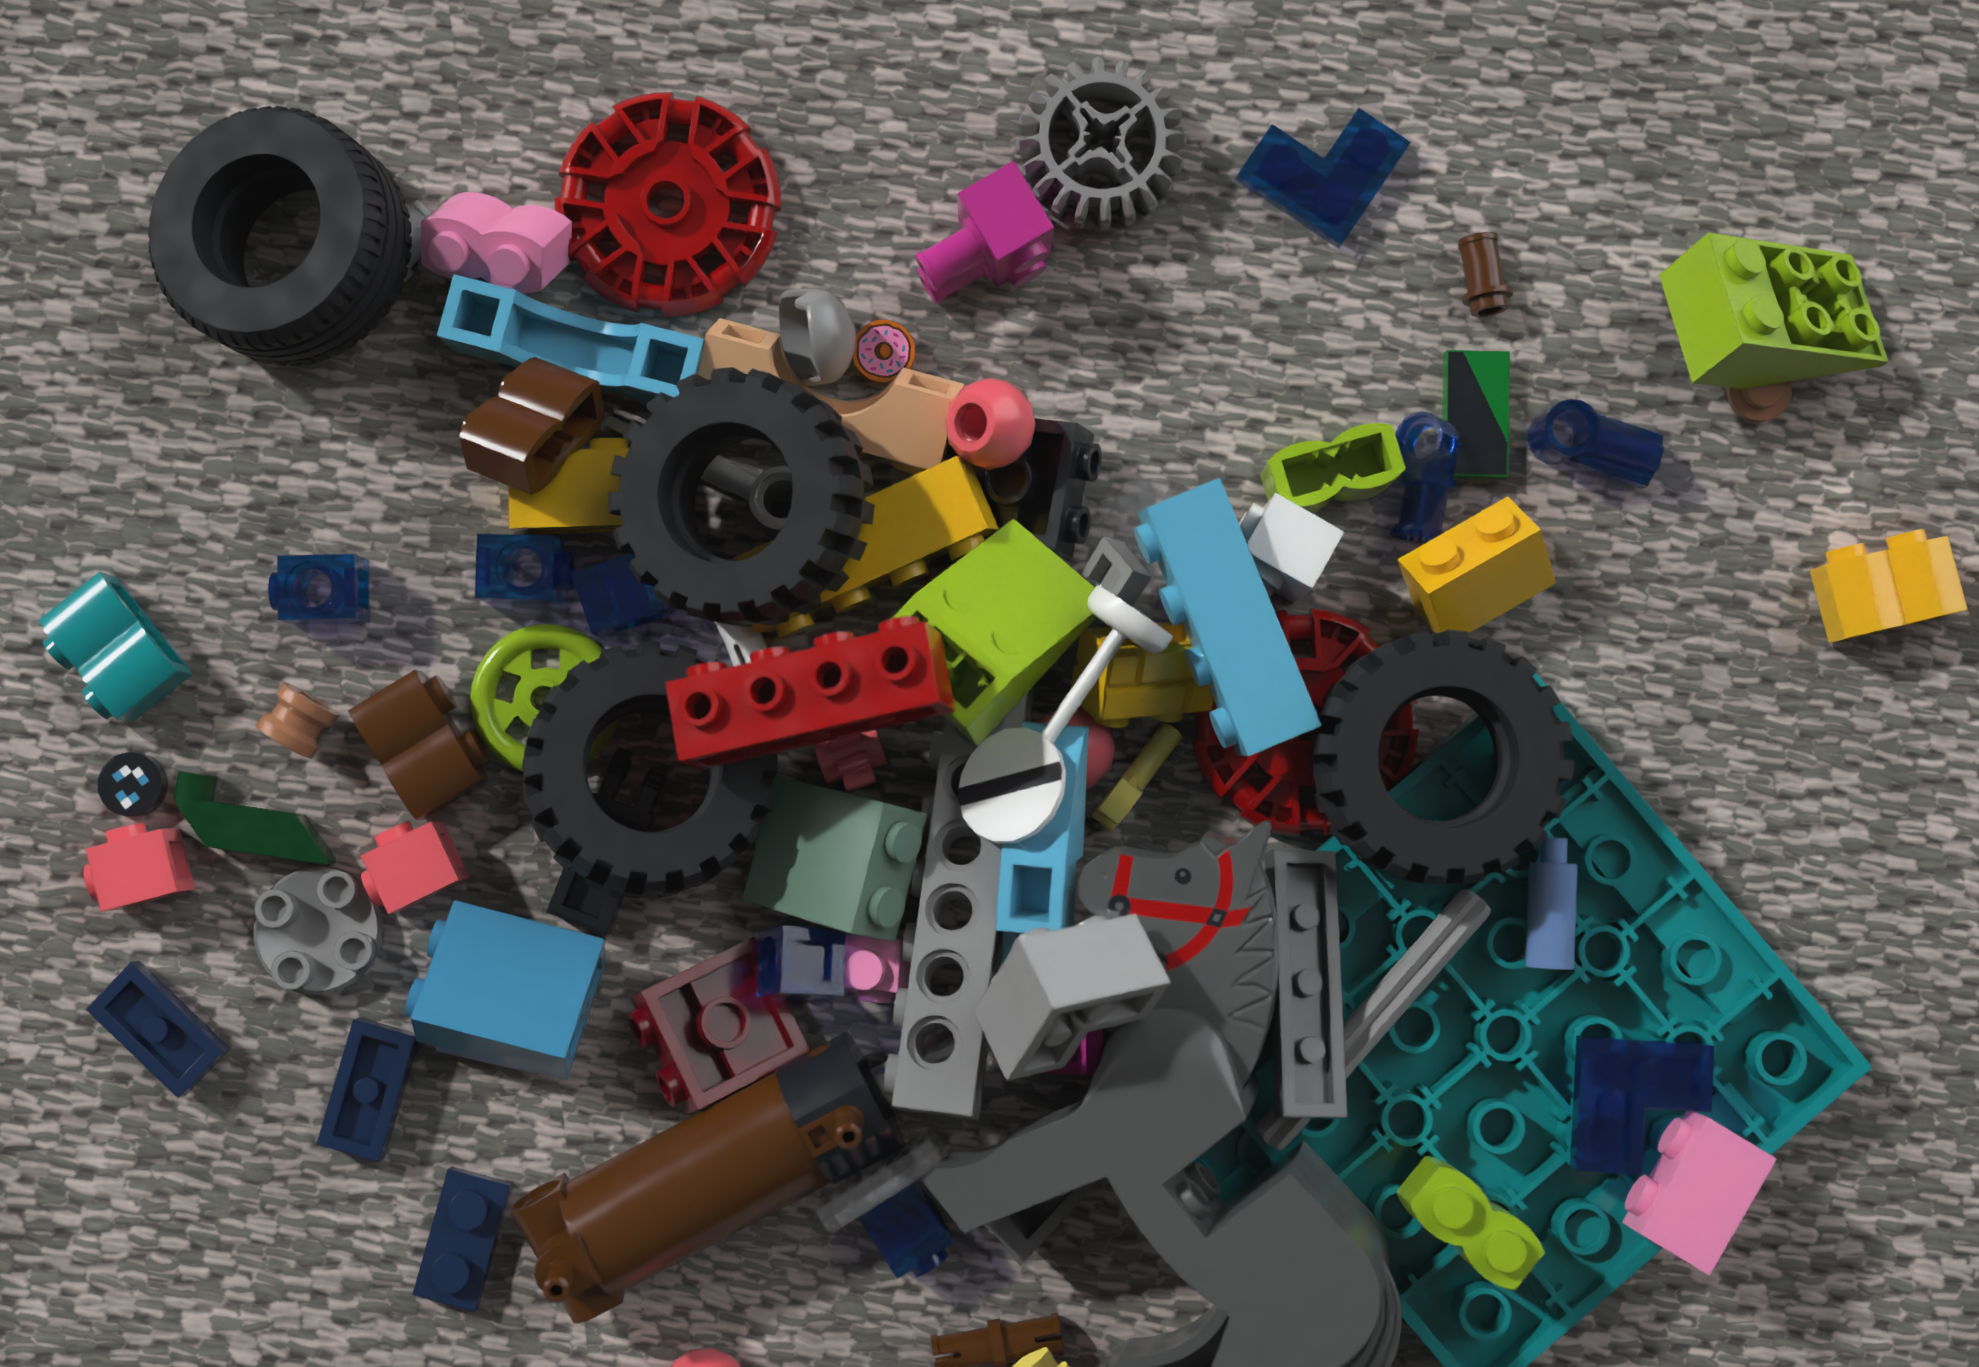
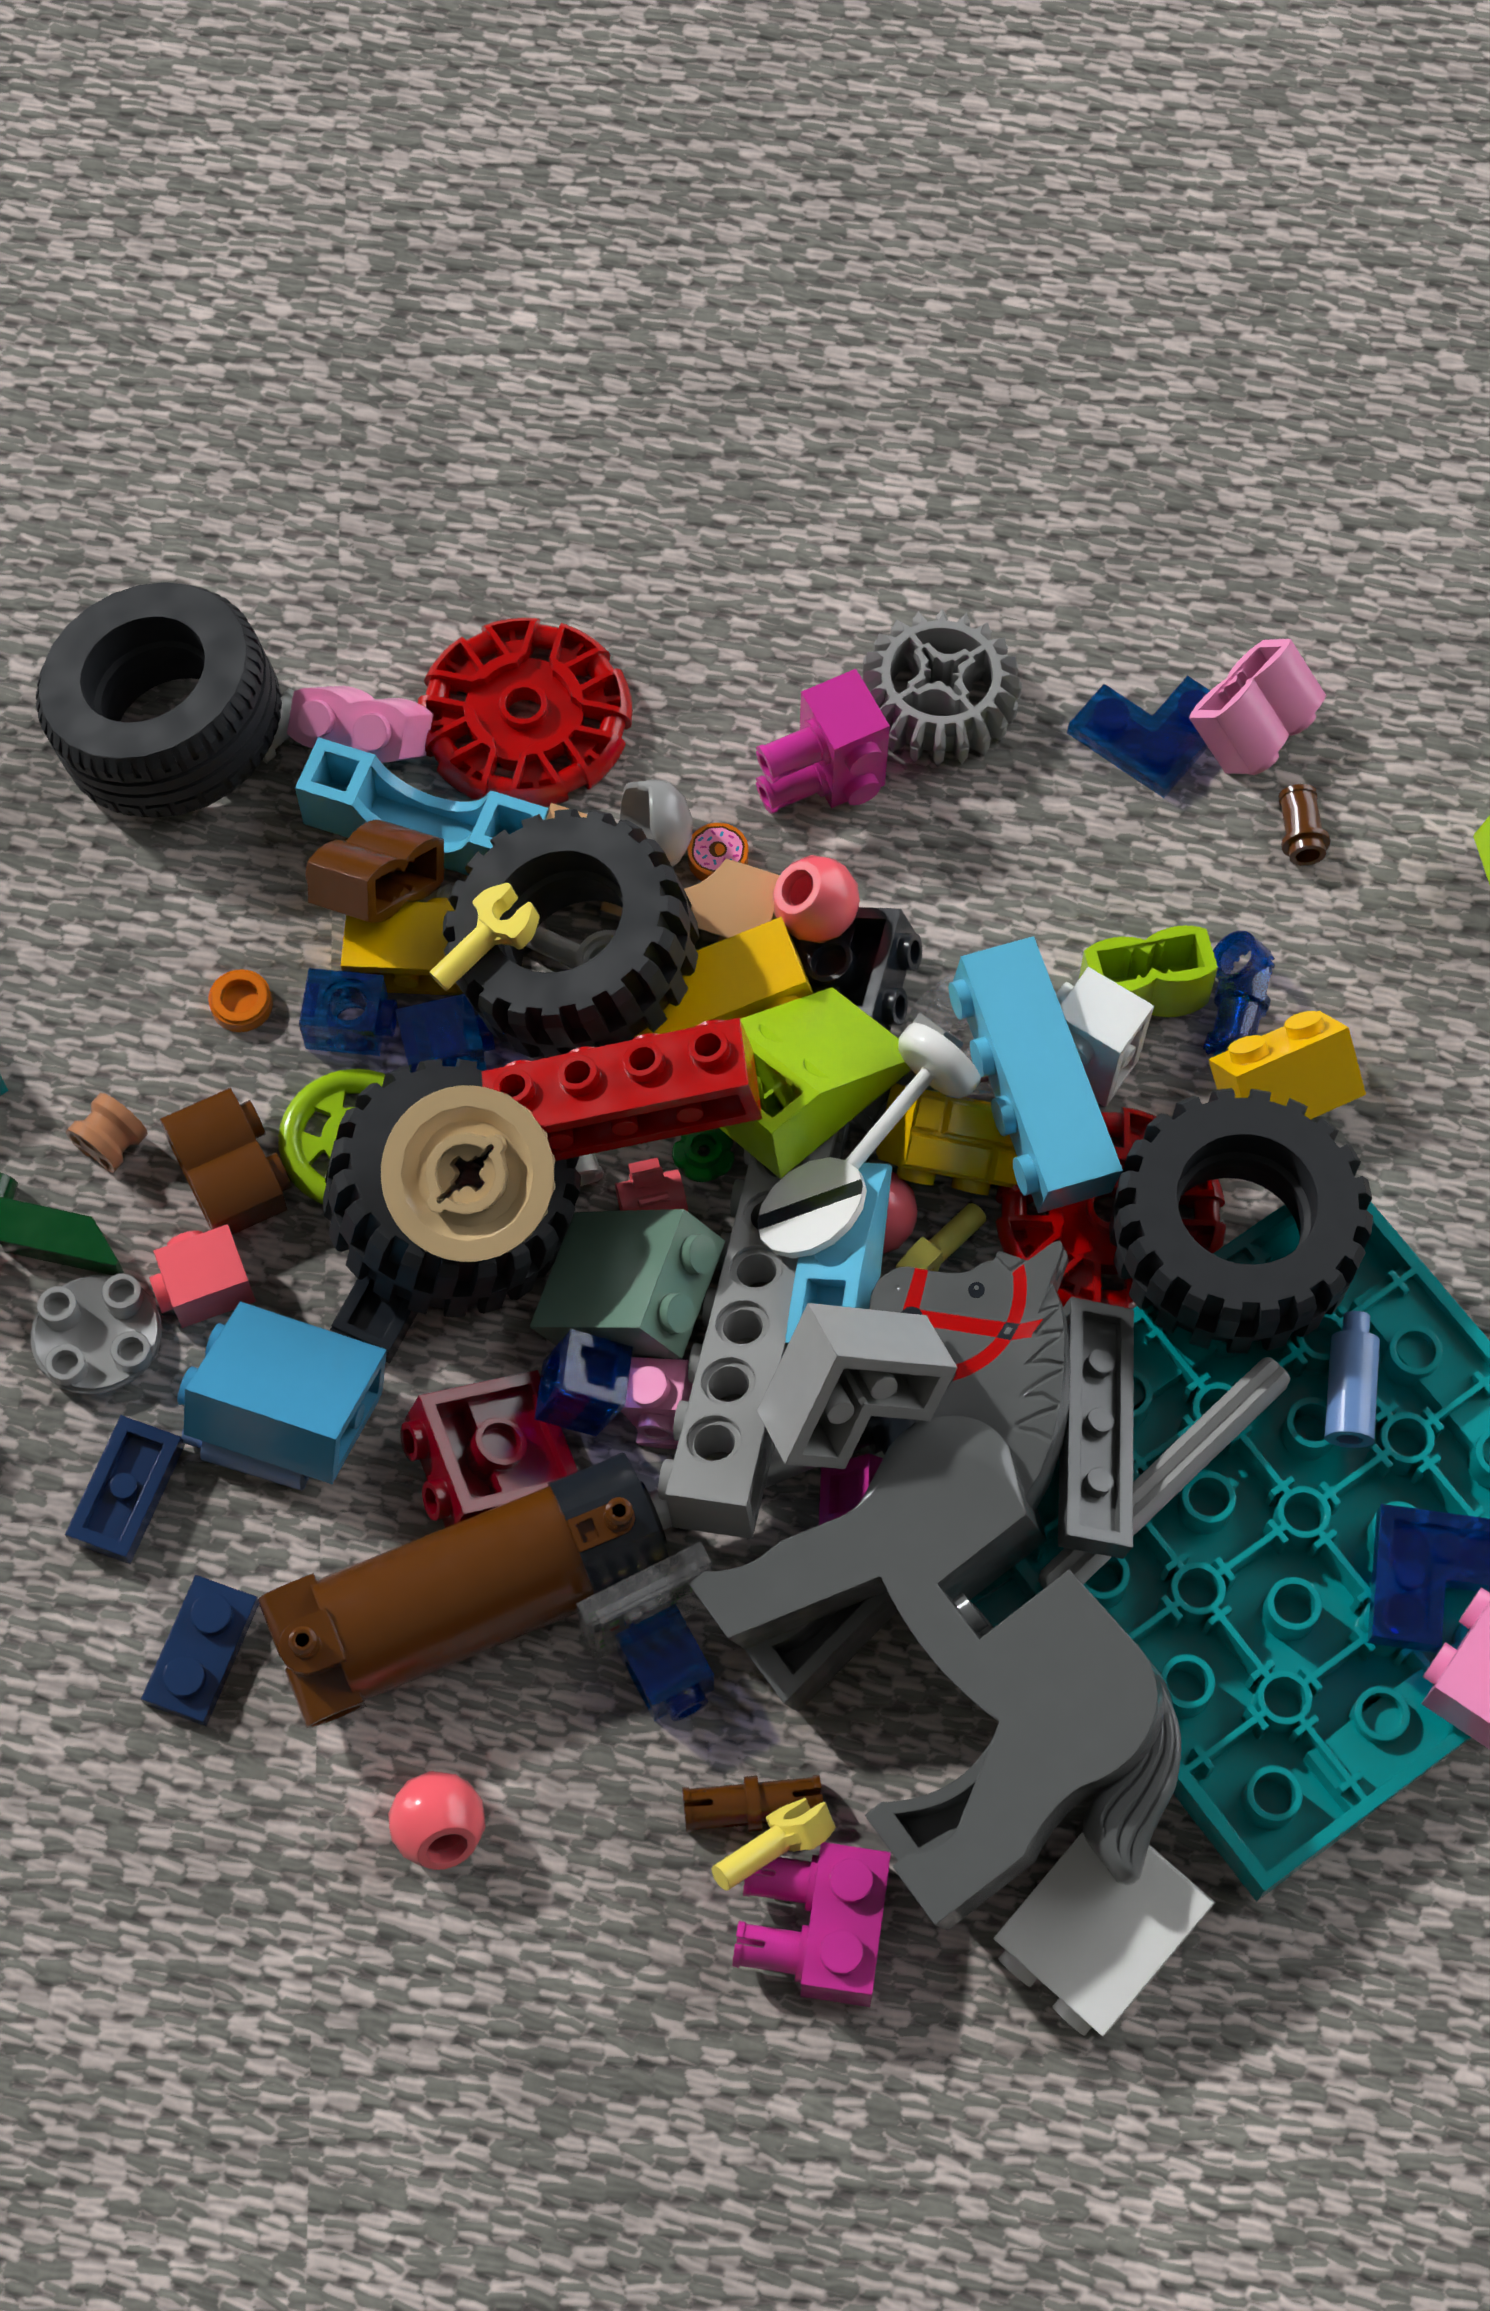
camera: 10 degrees right, 20 degrees down
(348, 595) = (163, 1036): clear blue brick -> none
(413, 557) = (240, 1000): none -> orange tile
(655, 524) = (489, 932): none -> light yellow bar
(674, 844) = (421, 1171): none -> tan gear
(1435, 145) = (1258, 707): none -> bright pink brick
(1477, 1228) = (1273, 1689): lime brick -> none
(1479, 409) = (1295, 935): black tile -> none
(1599, 444) = (1409, 977): clear blue piece -> none

